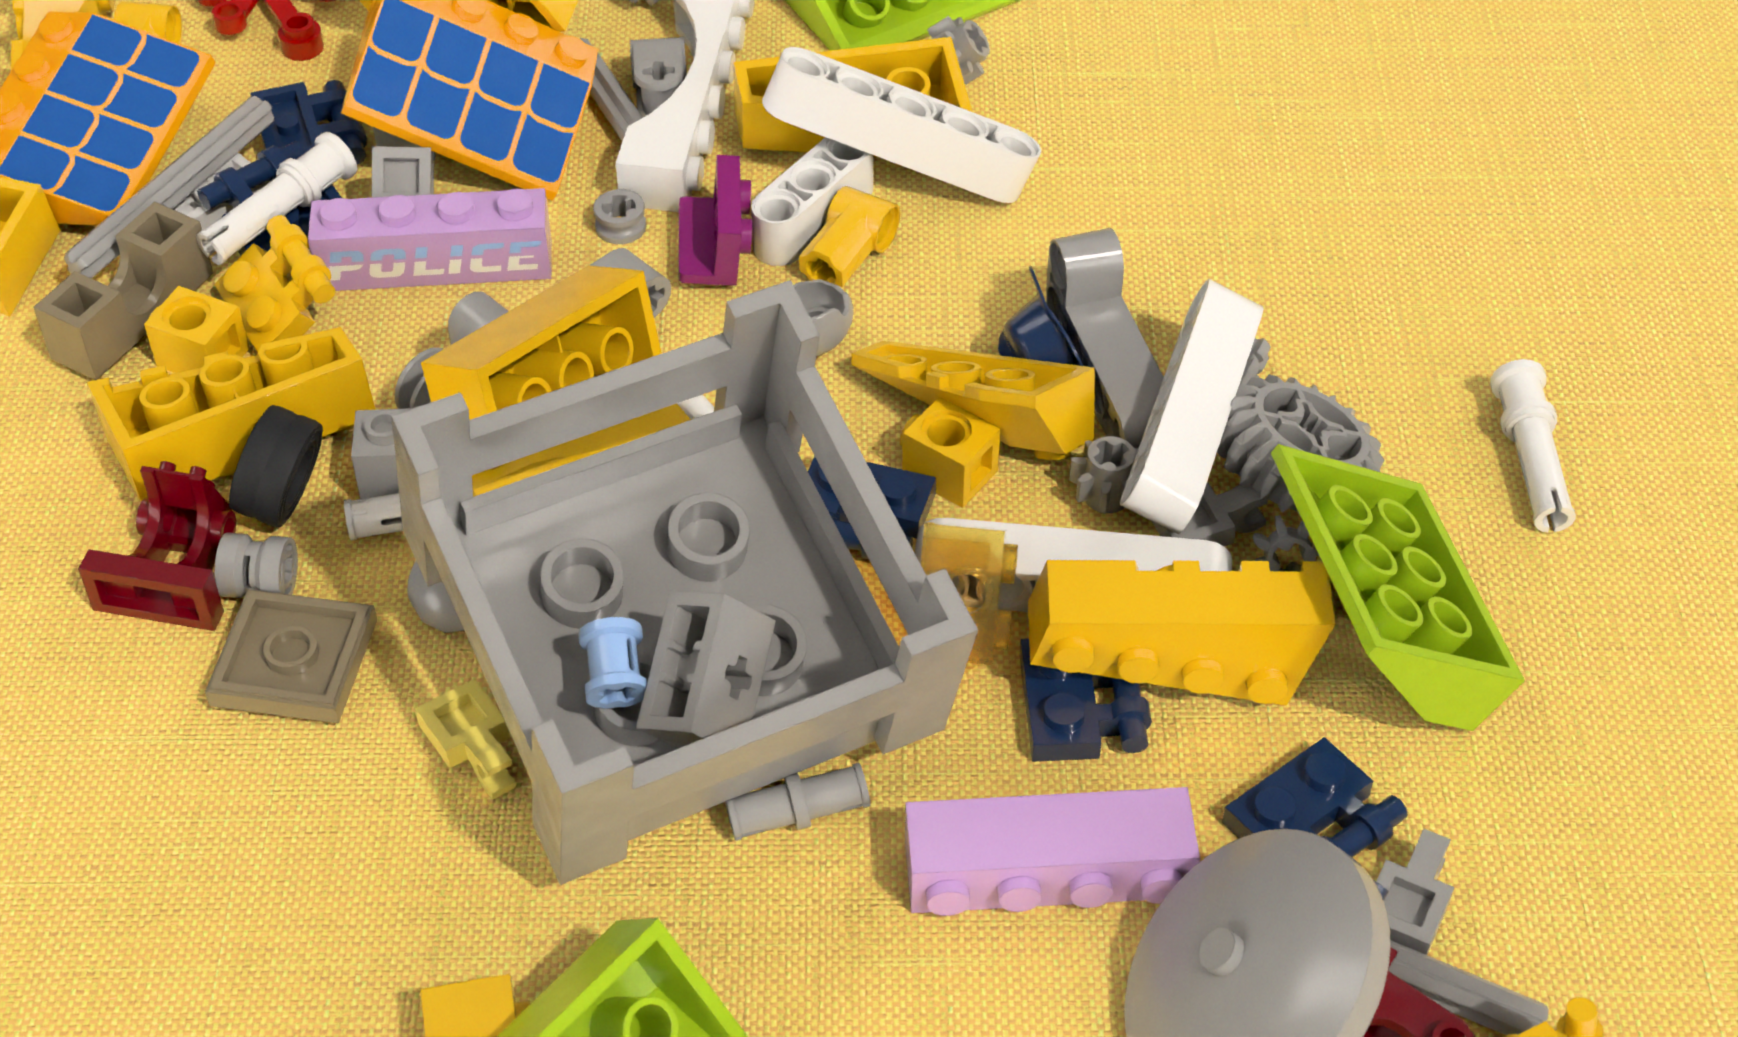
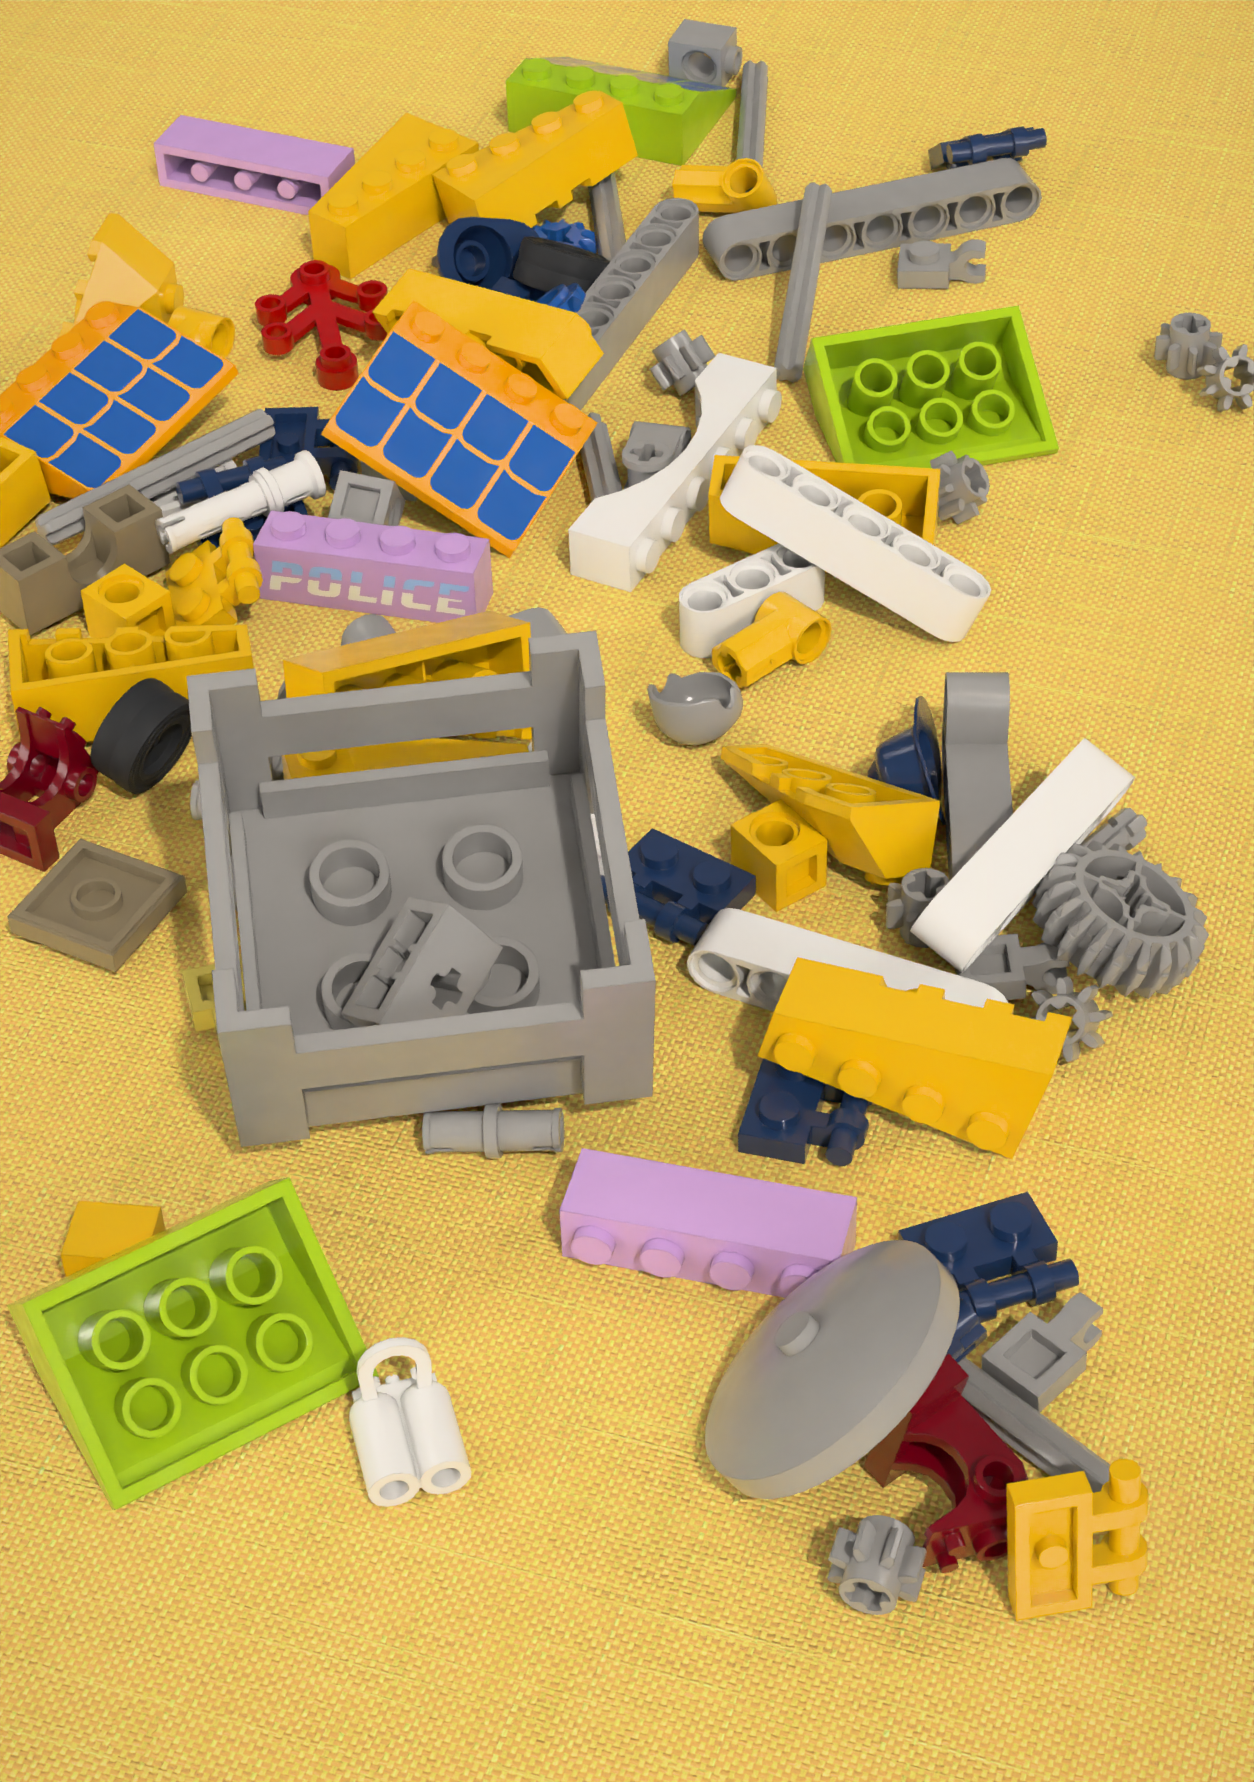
camera: 20 degrees right, 5 degrees down
(255, 565) = (99, 820): light grey wheel -> none
(613, 662) = (341, 951): light blue bush -> none
(619, 203) = (562, 583): light grey bush -> none
(712, 228) = (643, 607): magenta bracket -> none
(985, 556) = (689, 998): clear yellow brick -> none
(1403, 587) = (1145, 1061): lime slope -> none

